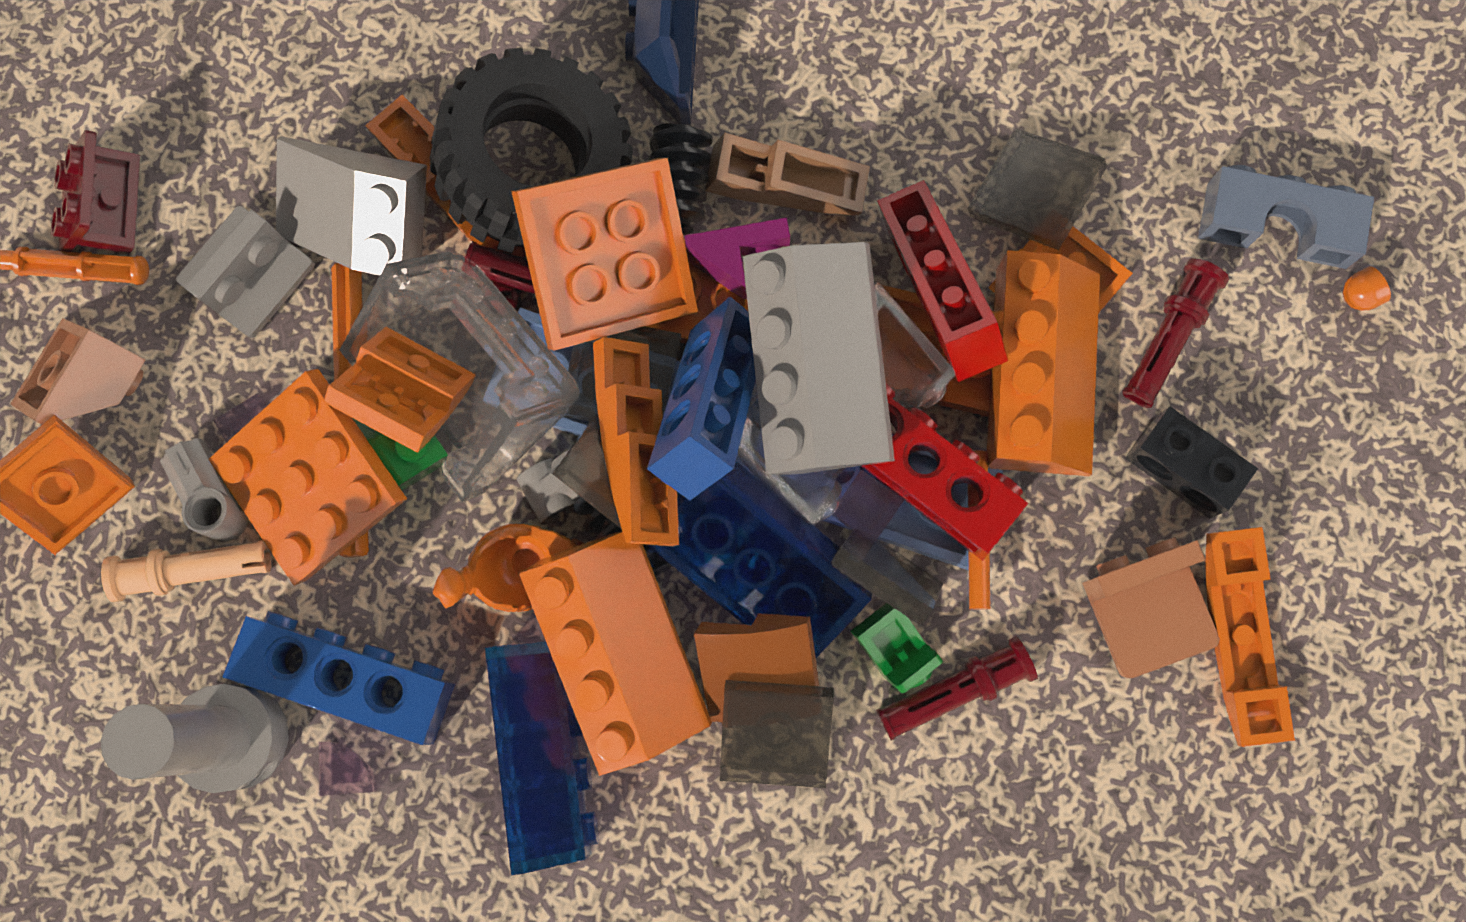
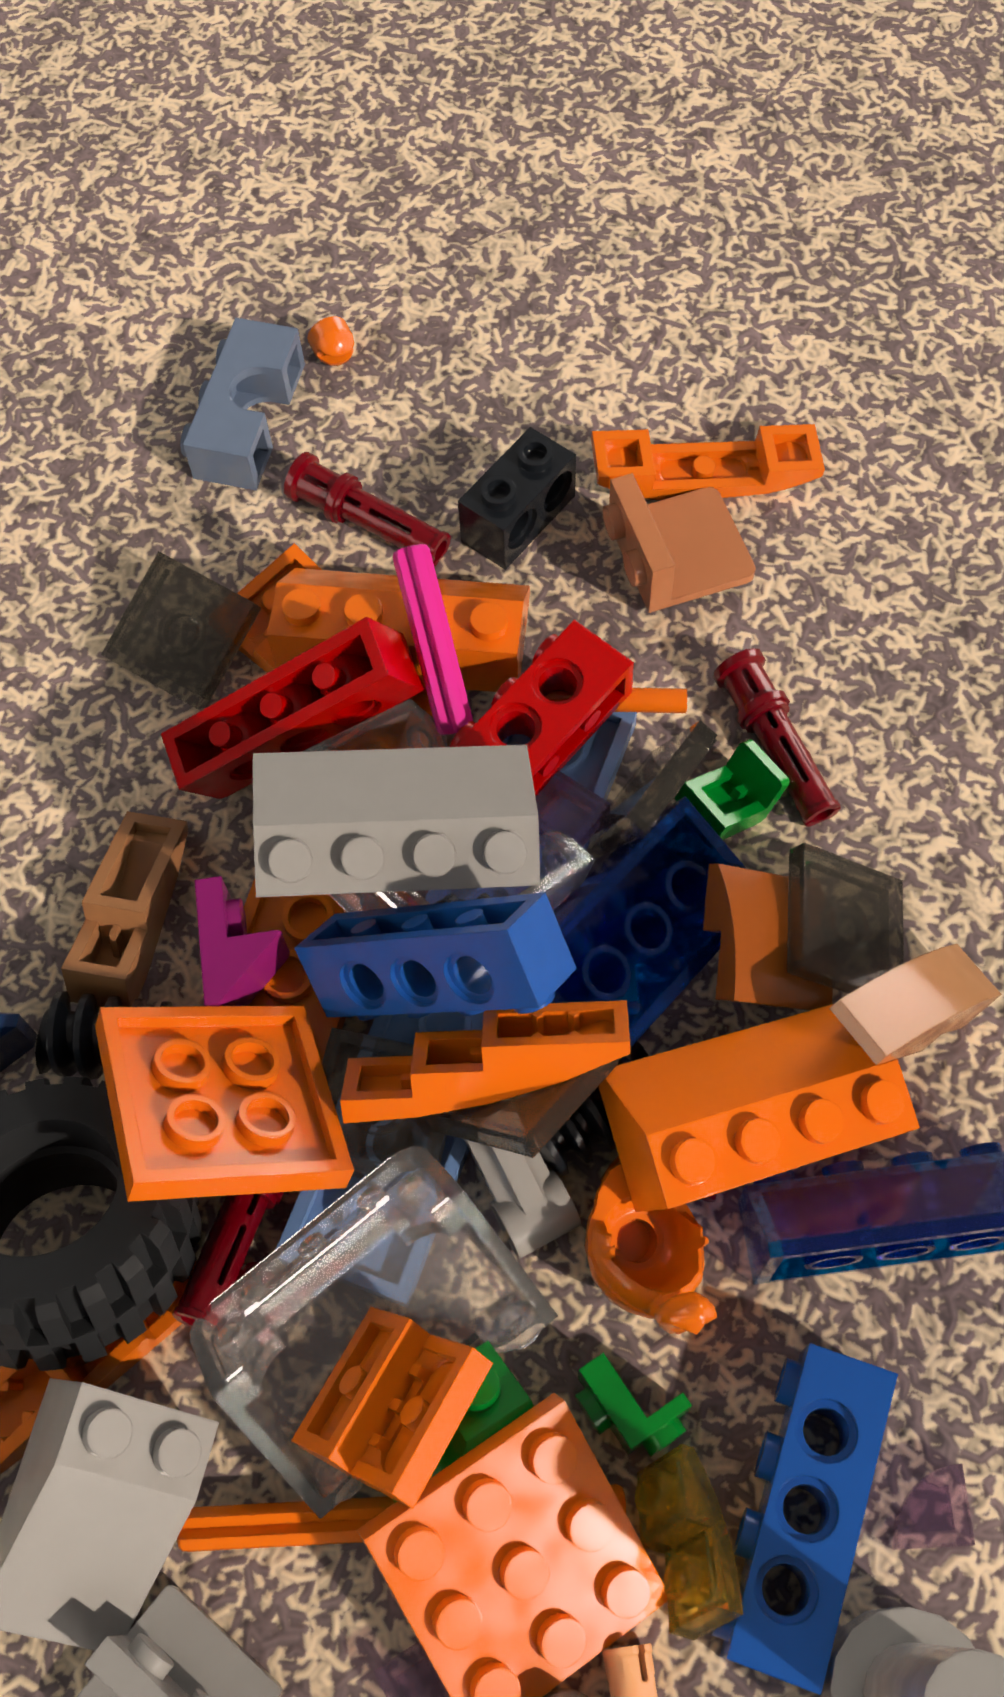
camera: 90 degrees left, 15 degrees down
(343, 591) = (687, 1525): none -> clear yellow slope
(413, 546) = (612, 1406): none -> green bracket
(697, 780) = (915, 1003): none -> slope
(1001, 383) = (432, 638): none -> dark pink axle

